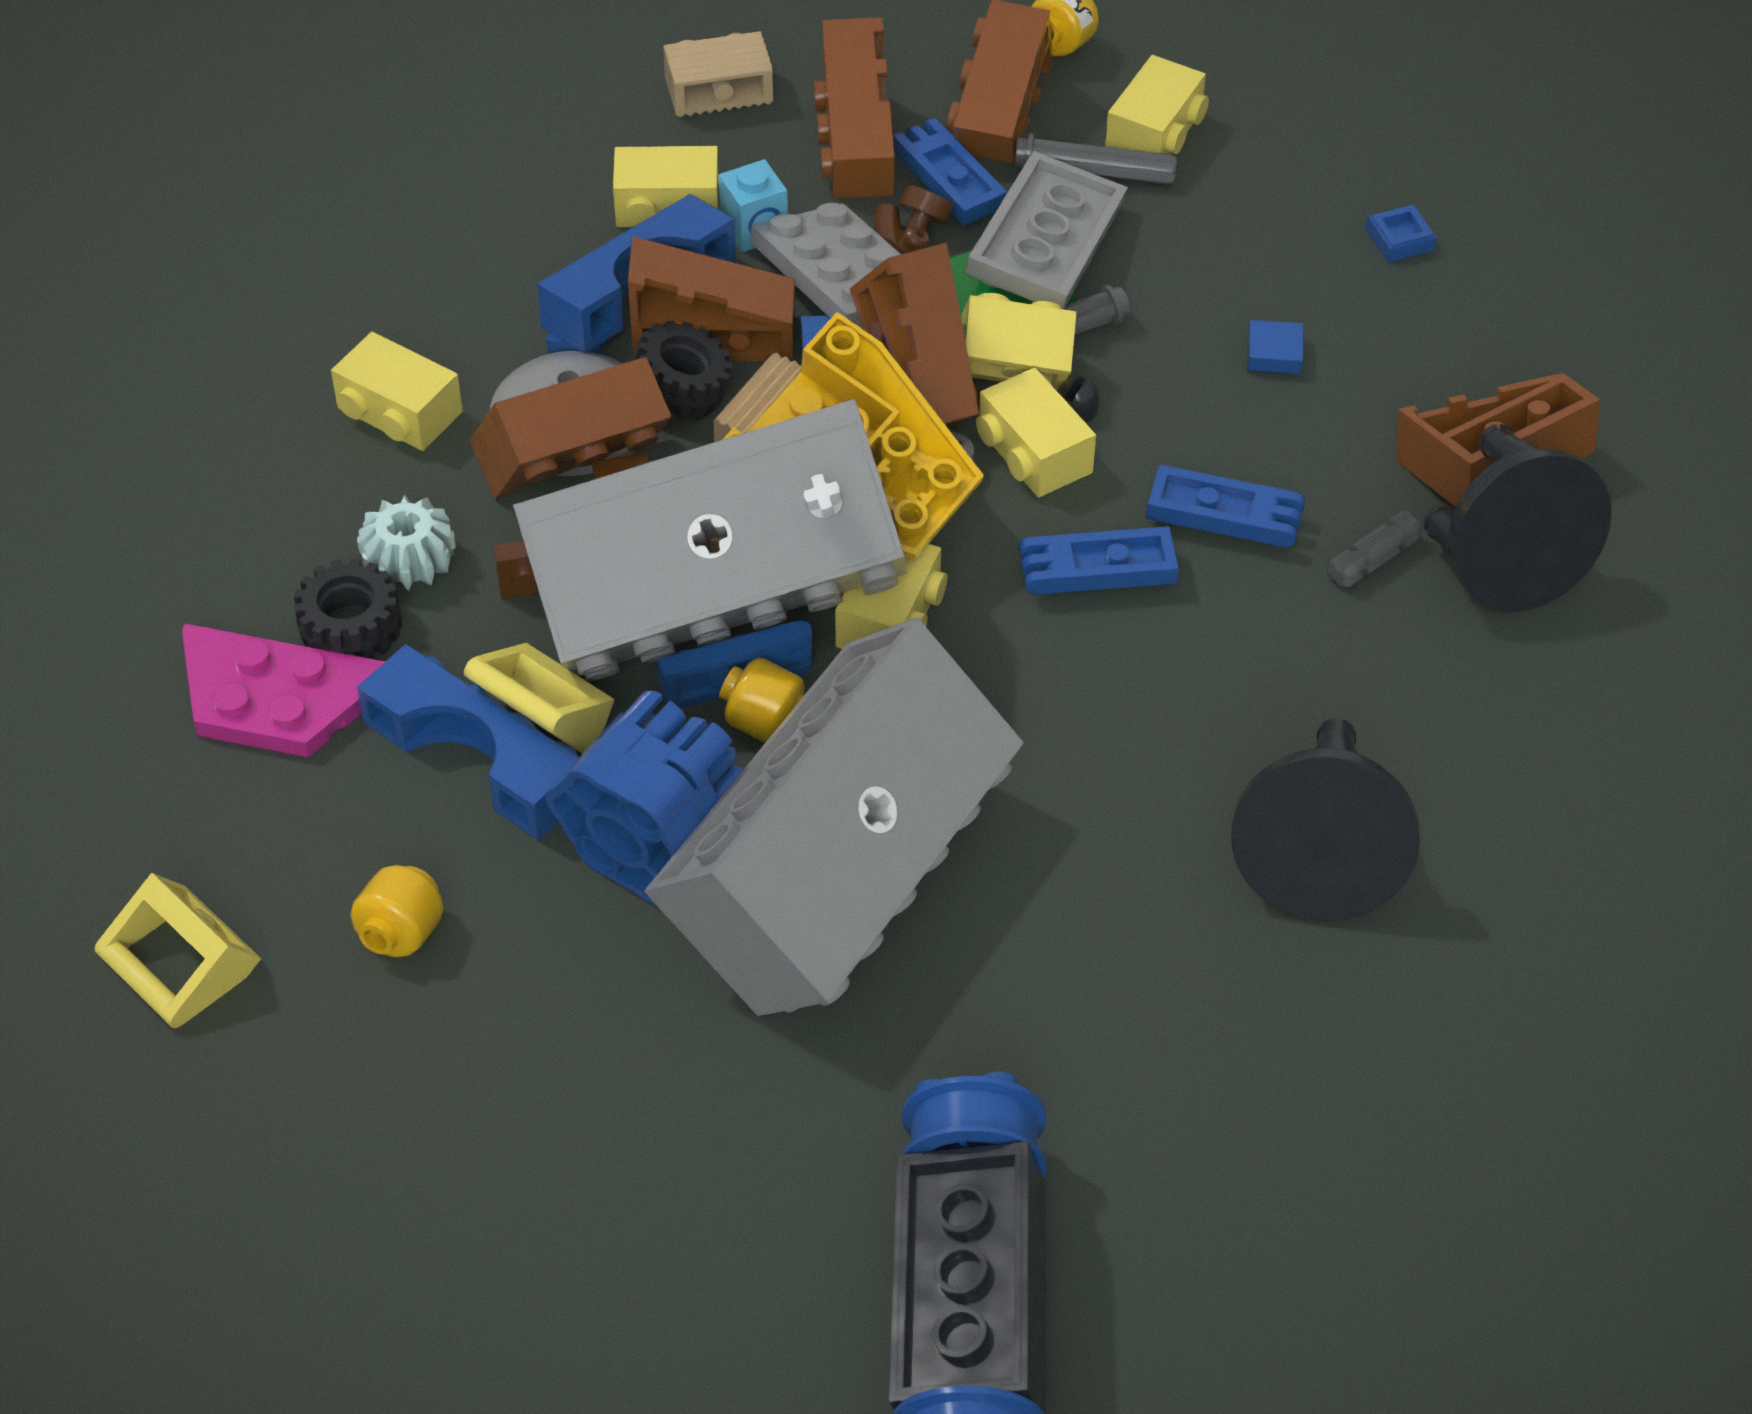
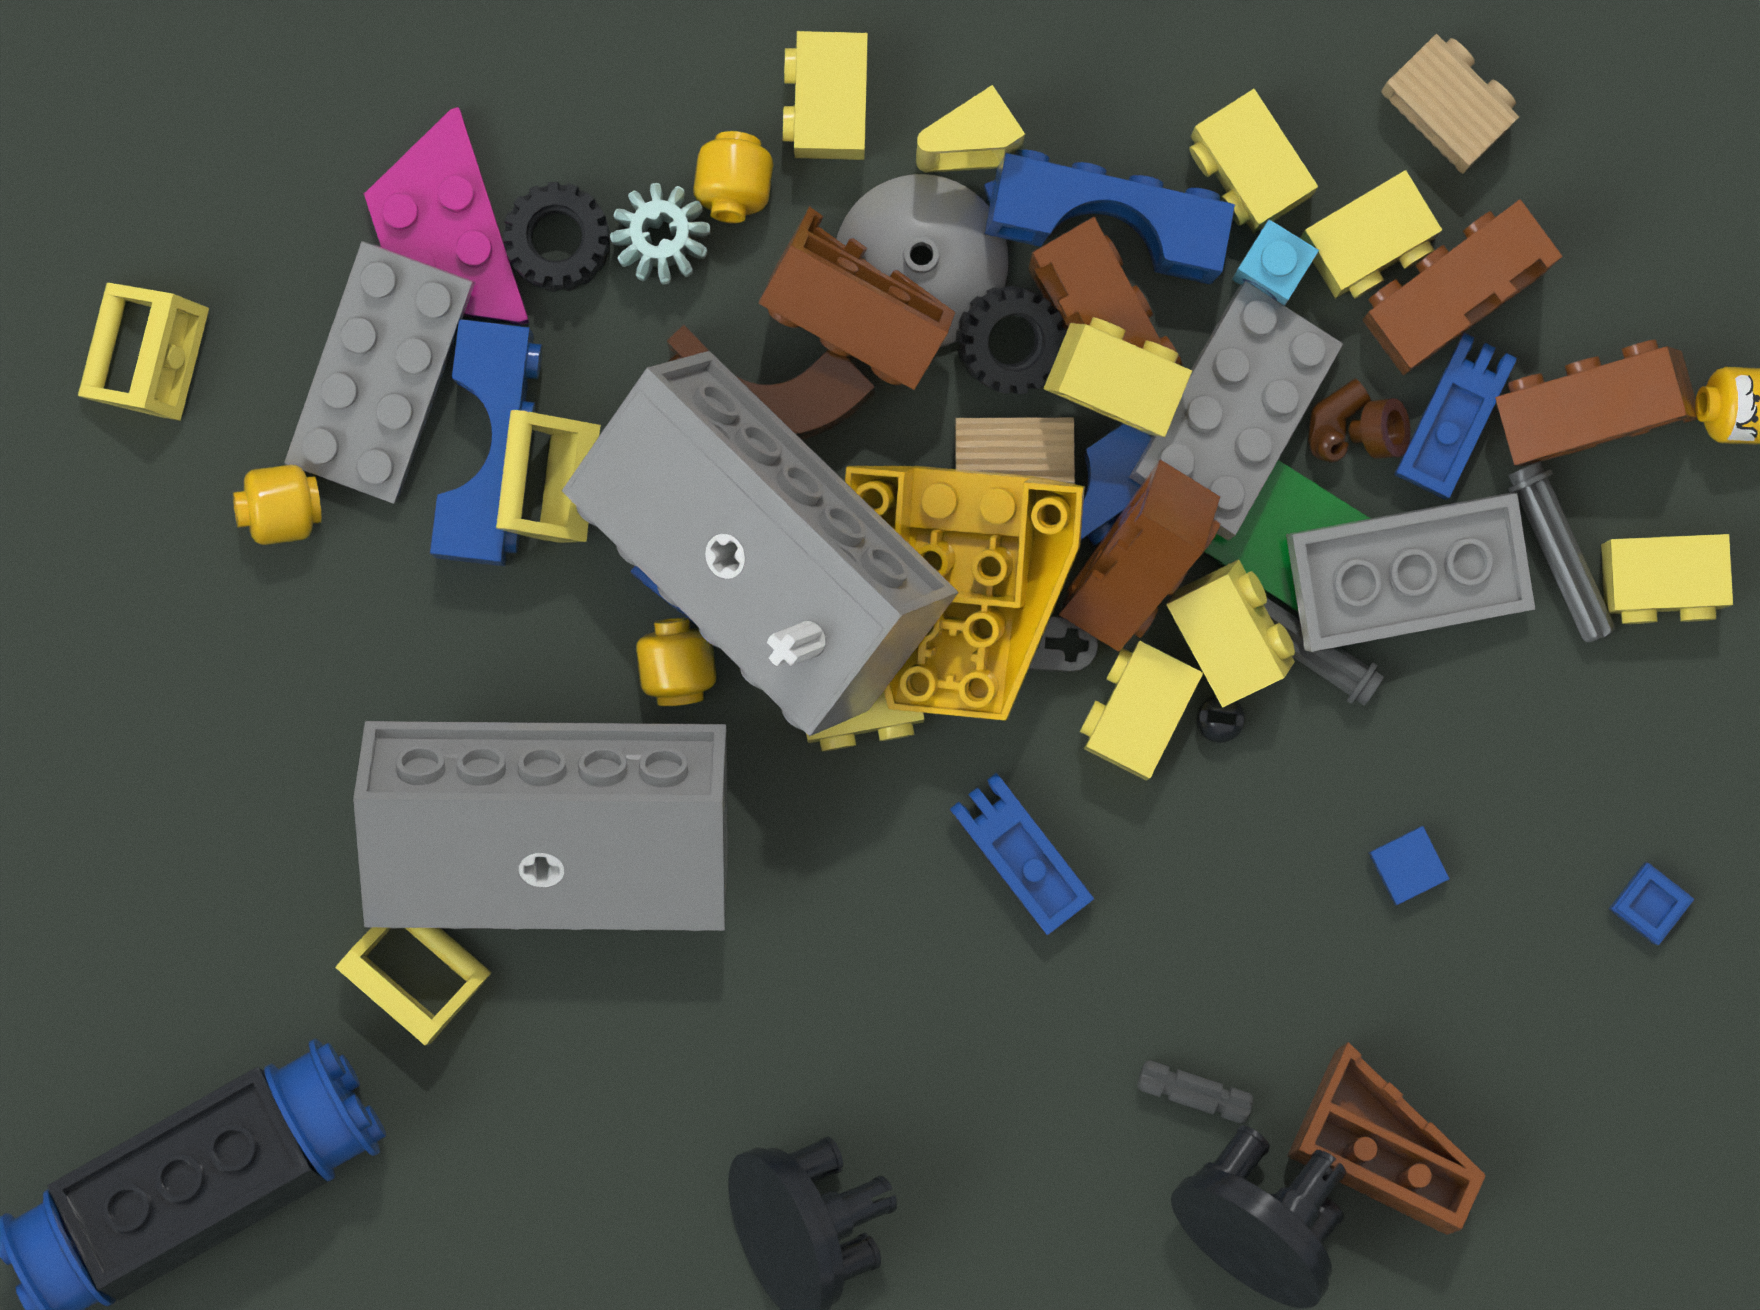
camera: 55 degrees right, 35 degrees up
(349, 778) = (379, 372): none -> light grey plate
(403, 468) = (733, 176): none -> yellow head
(508, 307) = (970, 136): none -> light yellow tile
(640, 791) = (483, 645): blue piece -> none
(767, 286) = (1117, 377): none -> light yellow brick
(781, 136) = (1371, 235): none -> light yellow brick
(897, 1053) = (395, 999): none -> light yellow tile
(1225, 506) = (1159, 929): blue hinge -> none

